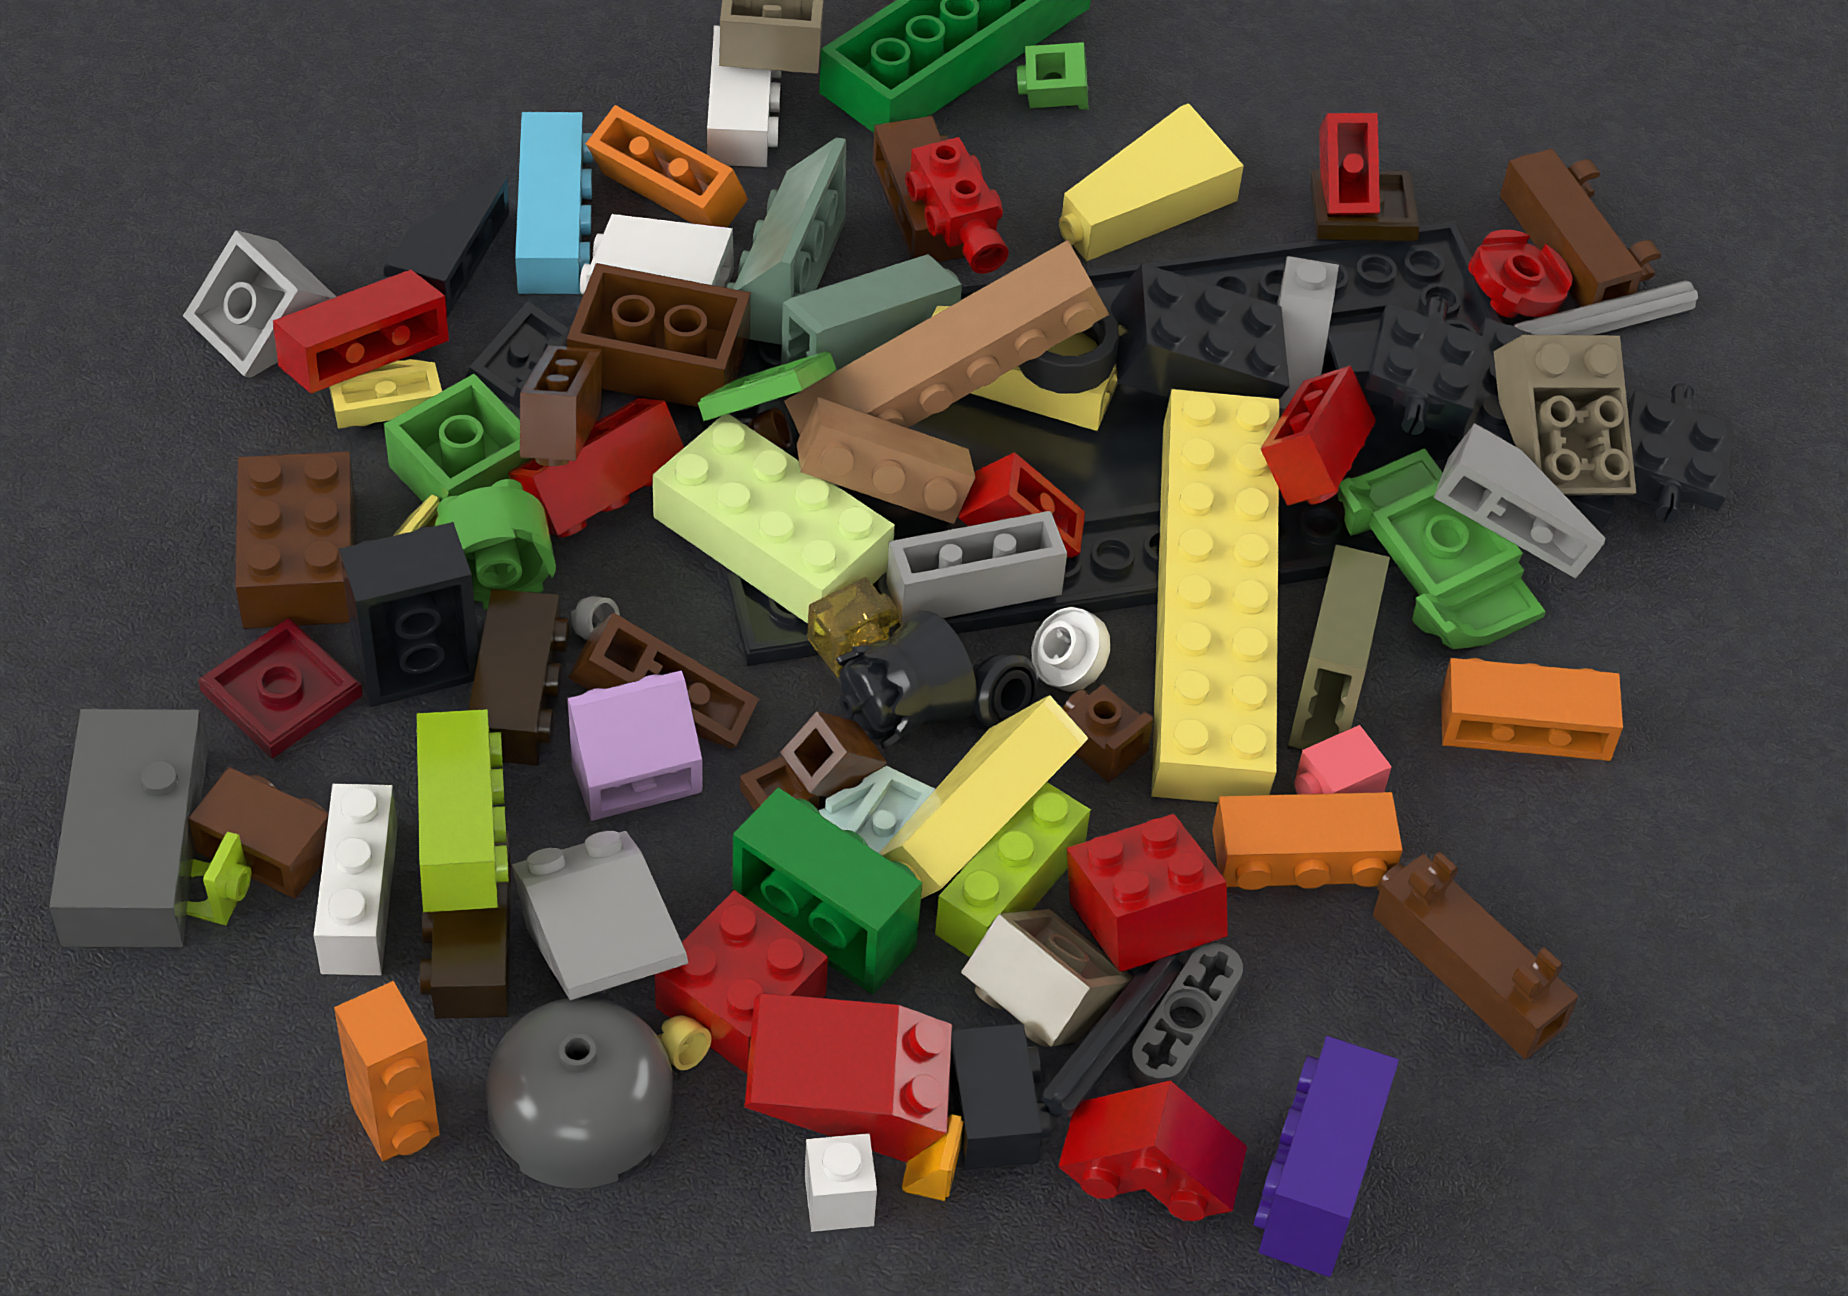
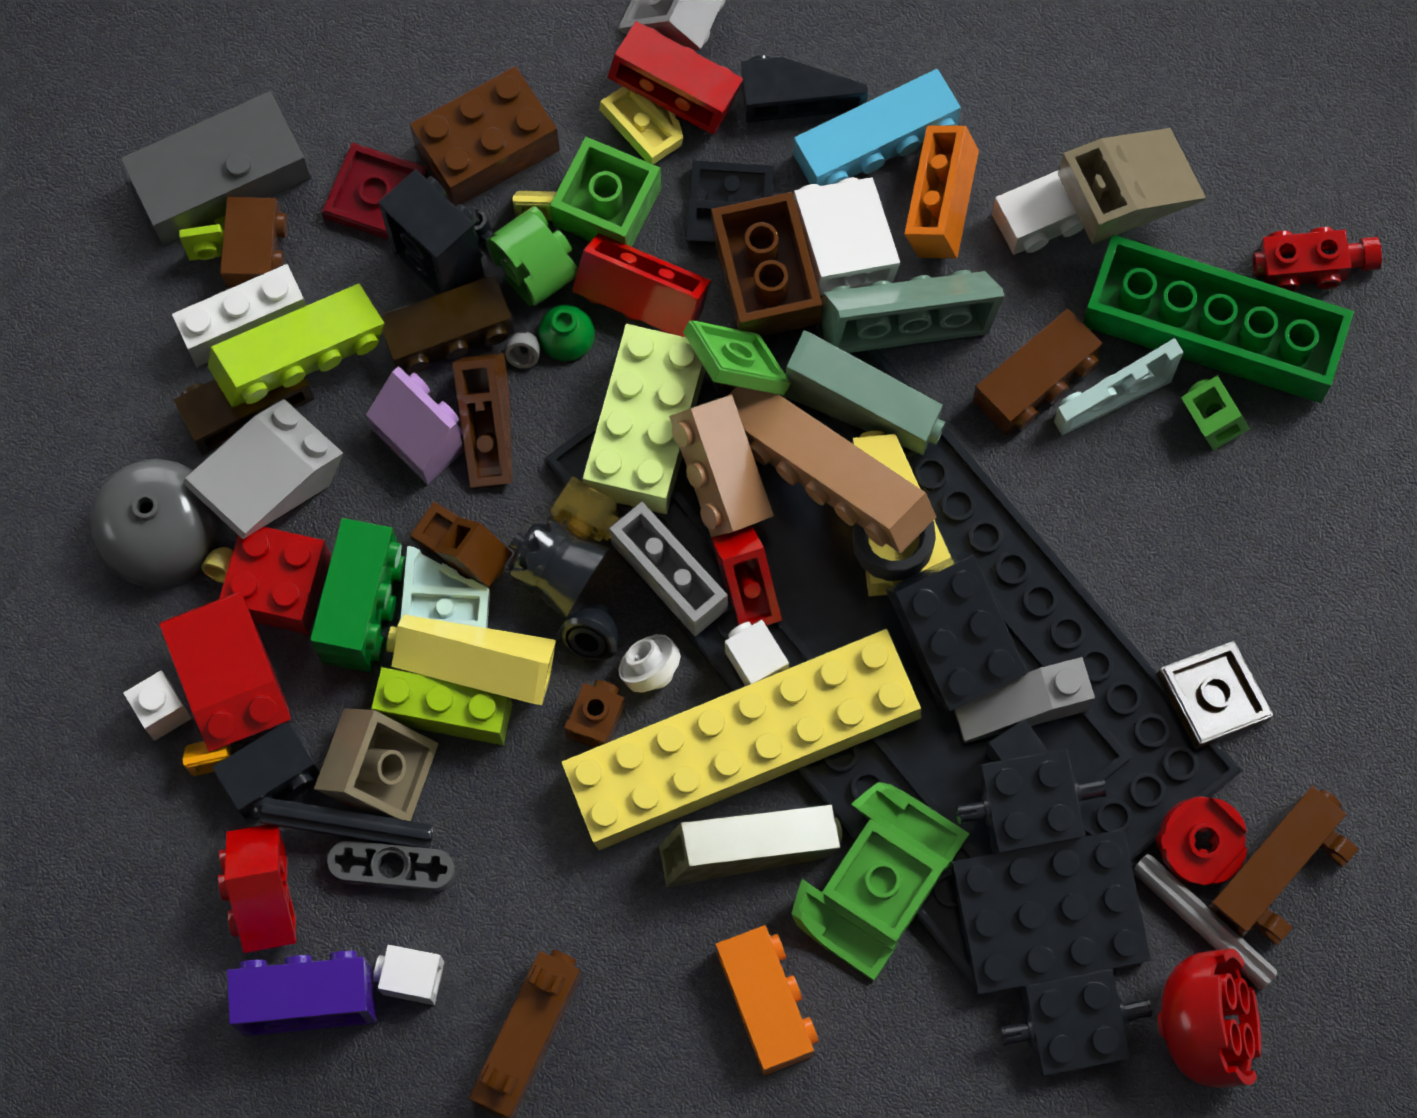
camera: 70 degrees right, 20 degrees up
(388, 1071) = (85, 407): orange brick -> none
(560, 404) = (646, 235): reddish brown brick -> none
(598, 569) = (566, 333): none -> green brick
(958, 202) = (1023, 396): red brick -> none
(983, 110) = (1120, 388): none -> light aqua wing
(1122, 541) = (754, 652): none -> white brick
(1147, 892) = (459, 798): red brick -> none
(1151, 186) = (1138, 529): light yellow slope -> none
(1306, 839) = (566, 888): orange brick -> none
(1318, 436) = (908, 750): red brick -> none
(1343, 765) = (635, 889): coral brick -> none
(1347, 1020) = (409, 974): none -> white brick
(1350, 163) = (1227, 666): red slope -> none
(1517, 501) = (928, 905): light grey slope -> none
(1569, 410) = (1032, 925): dark tan slope -> none
(1727, 332) = (1192, 1021): none -> red cylinder

